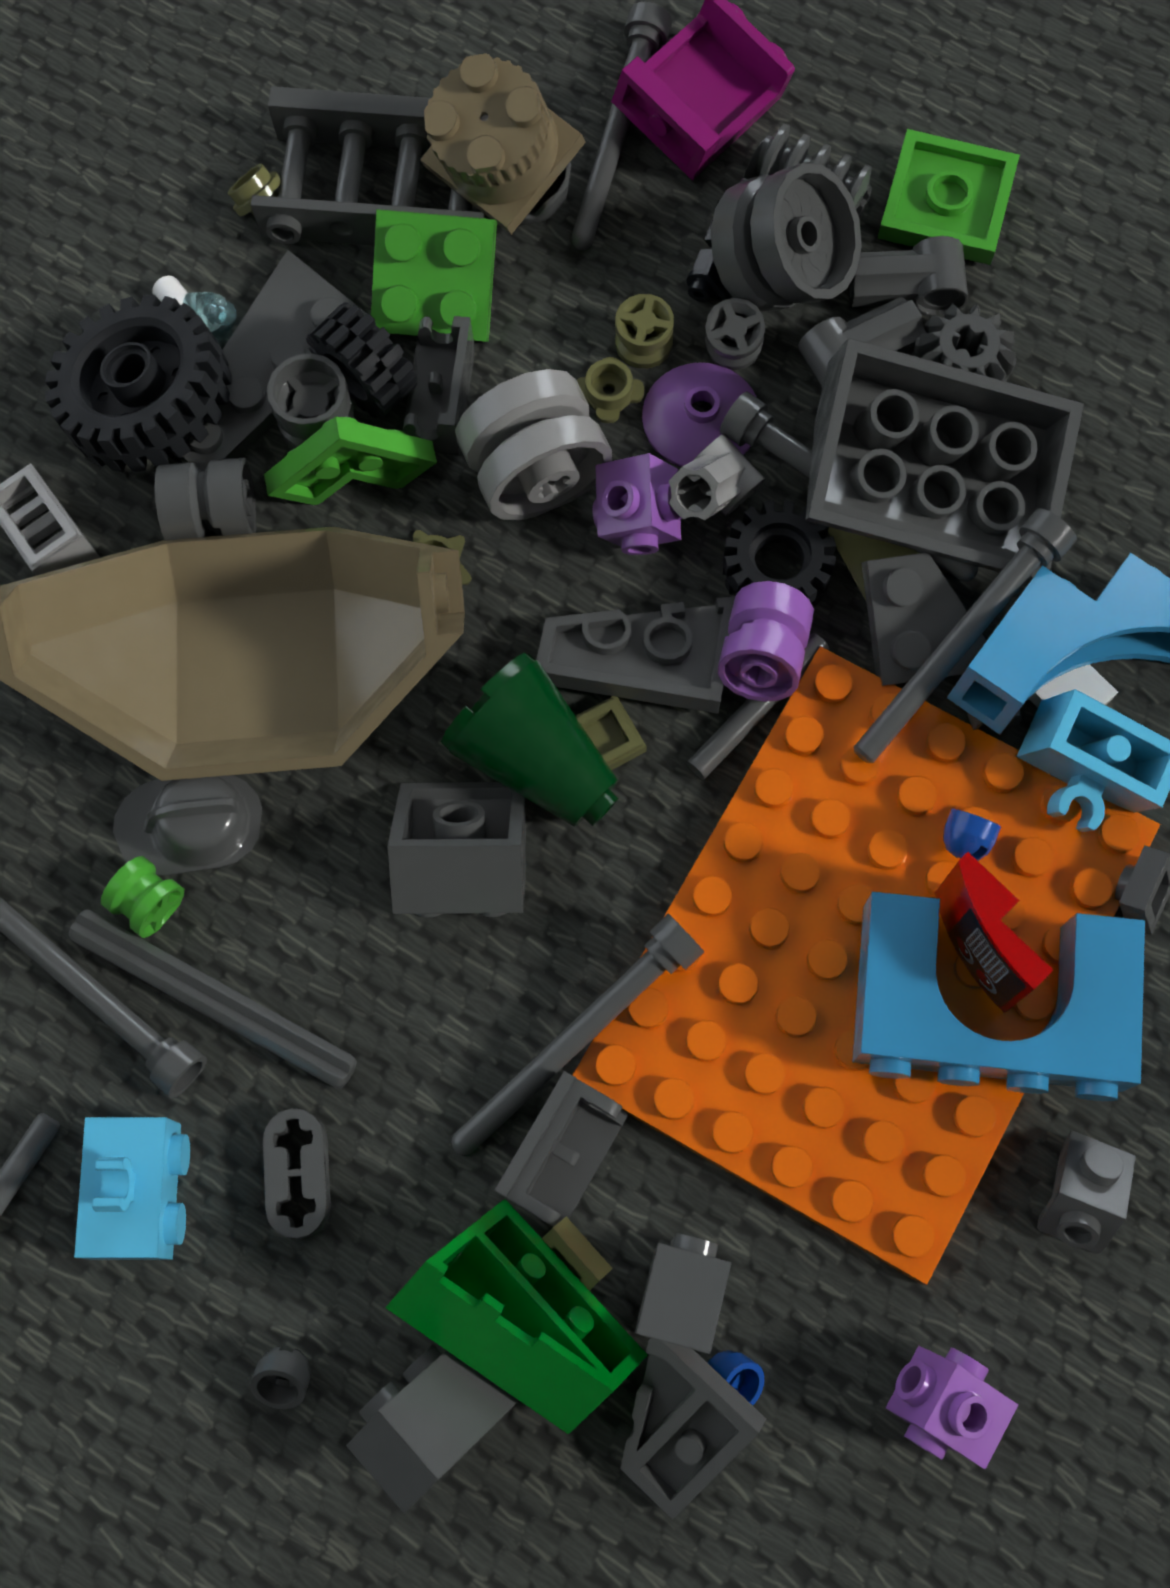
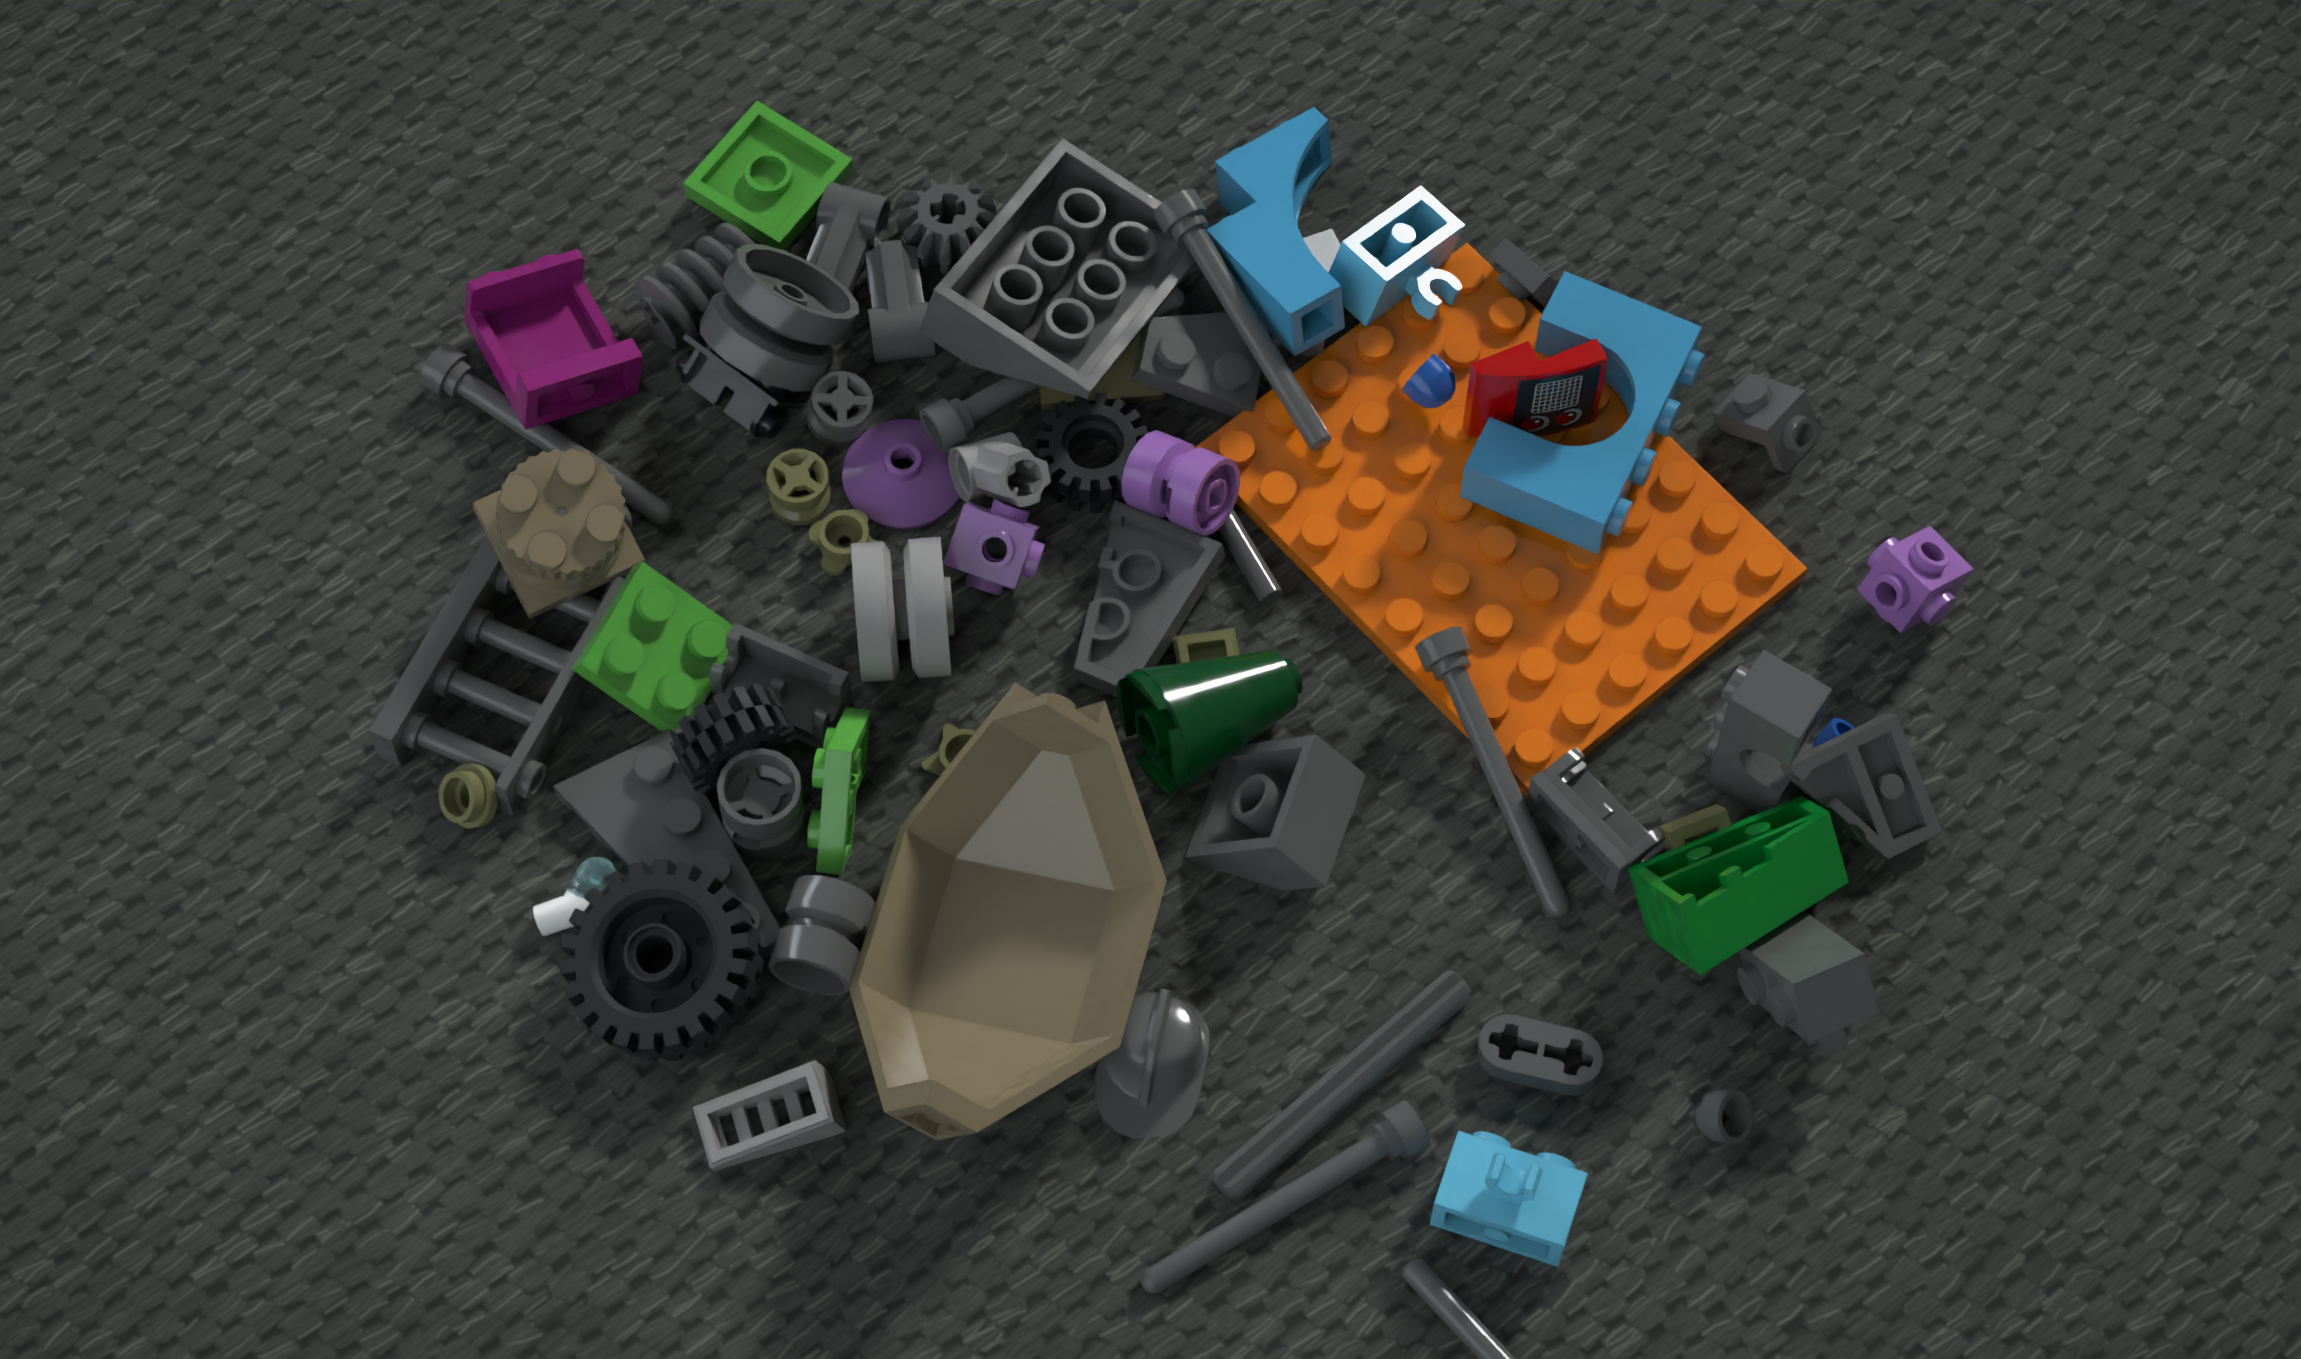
camera: 75 degrees left, 10 degrees down
(142, 896) = (1222, 1112): bright green wheel -> none

